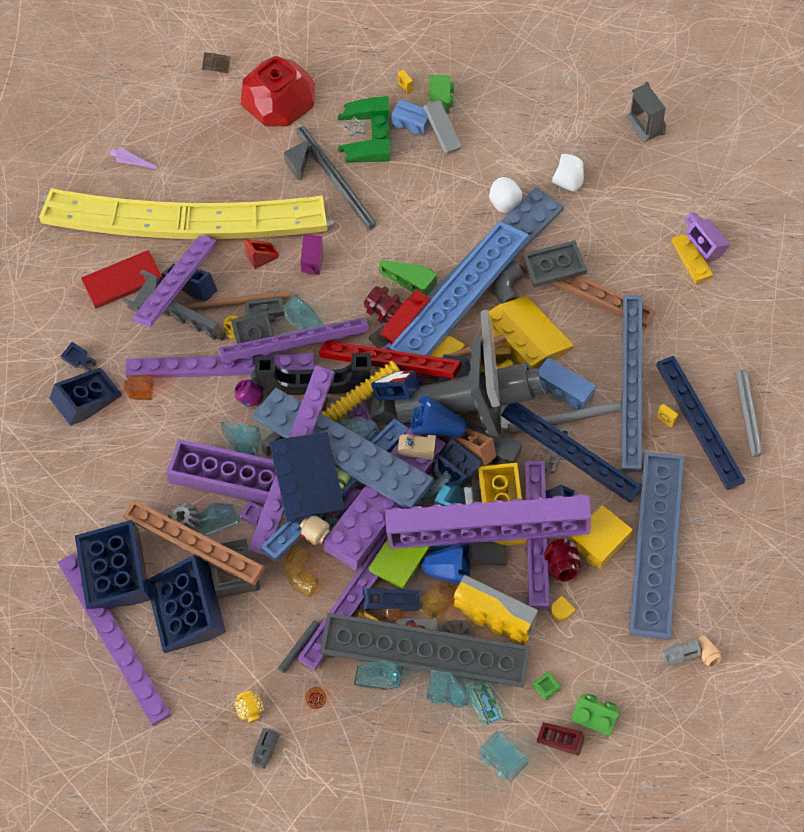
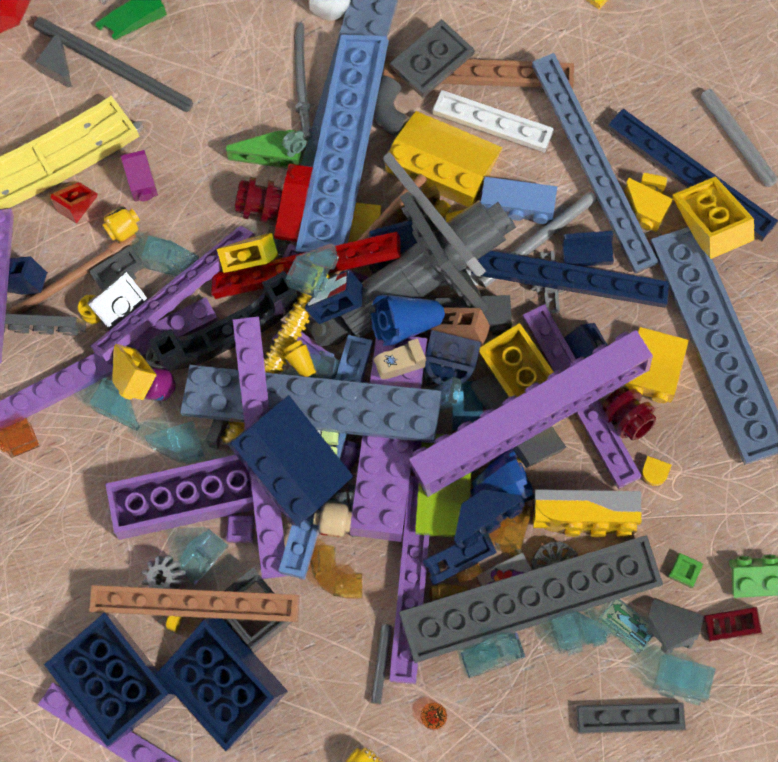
camera: 25 degrees left, 10 degrees up
(175, 552) = (173, 623): none -> yellow tile
(215, 393) = (112, 405): none -> clear light blue slope
(234, 376) = (131, 372): none -> yellow slope
(283, 280) = (121, 223): none -> yellow head
(350, 414) = (300, 359): none -> yellow cone
(356, 335) = (248, 253): none -> yellow slope
(387, 358) = (311, 268): none -> clear light blue slope
(420, 575) = (483, 514): none -> dark blue slope
(426, 276) = (294, 142): none -> sand green plate
(449, 258) = (302, 106): none -> dark grey sword
(452, 766) = (630, 718): none -> dark grey tile
(515, 717) = (673, 625): none -> dark grey slope
(576, 325) = (493, 121): none -> white plate
(597, 438) = (588, 248): none -> dark blue panel
(656, 429) = (647, 204): none -> yellow slope
(697, 456) = (715, 217): none -> yellow slope

